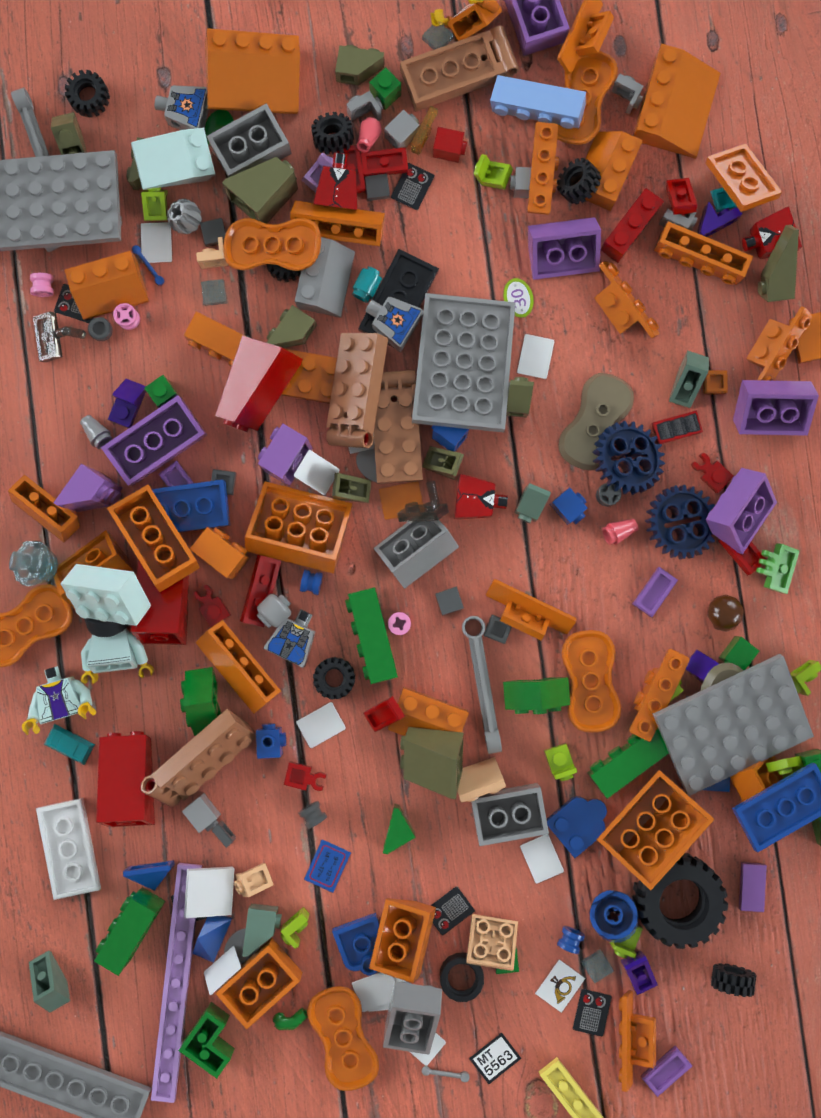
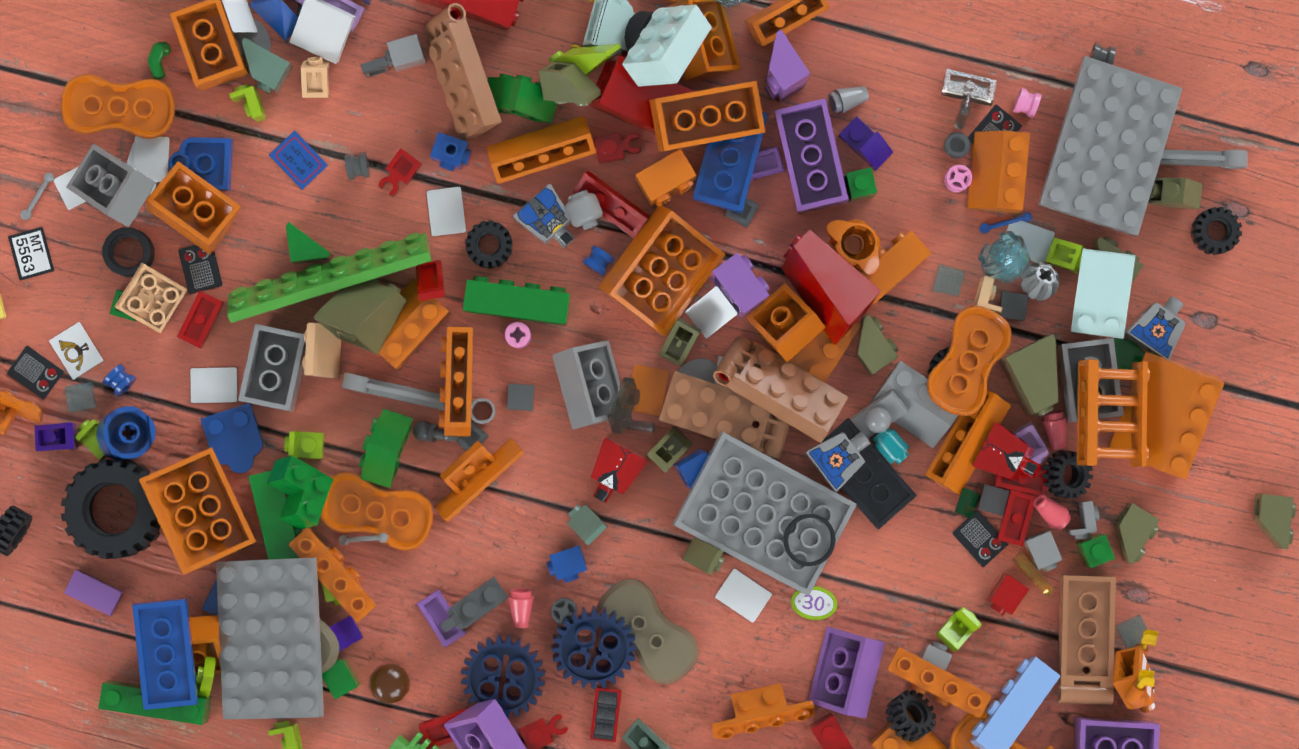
camera: 115 degrees right, 0 degrees up
(154, 666) = (586, 57): none -> lime slope
(172, 666) = (567, 83): none -> olive slope
(175, 250) = (1005, 258): none -> clear light blue cone
(211, 374) = (855, 243): none -> orange piece
(275, 129) = (1087, 413): none -> orange fence
(300, 405) = (786, 322): none -> orange brick
(301, 157) = (1056, 428): none -> coral cone
(345, 301) = (880, 414): none -> light grey tile
(388, 205) = (967, 502): none -> dark green tile
(415, 800) = (328, 277): none -> bright green plate
(459, 655) = (458, 385): none -> orange brick
(470, 337) = (832, 544): none -> black piece
(493, 892) = (200, 319): none -> red plate
(508, 668) = (425, 431): none -> dark grey bar
(600, 745) = (305, 489): none -> green brick
(624, 696) = (344, 539): none -> light grey hinge
(635, 569) = (474, 605): none -> dark grey hinge

